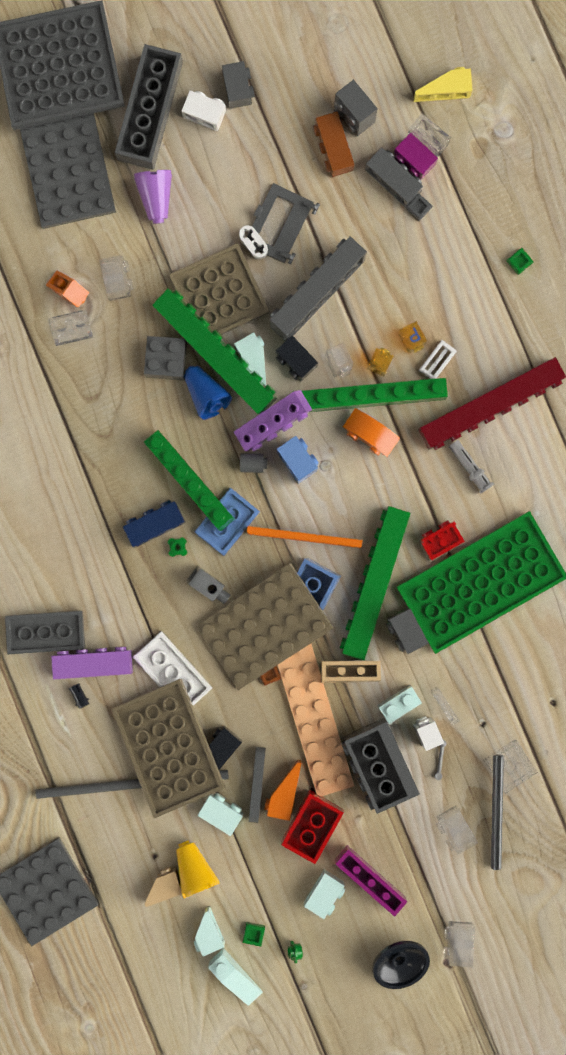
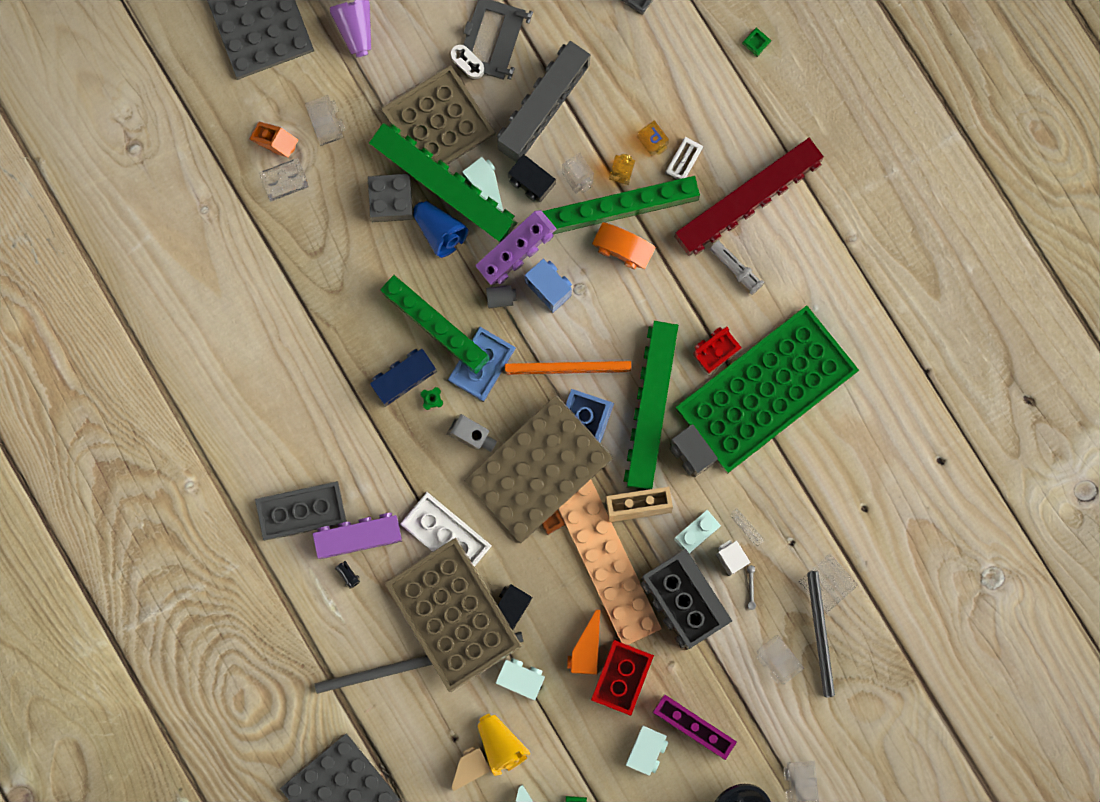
camera: 10 degrees left, 5 degrees down
(257, 784) = (555, 642): dark grey beam -> none

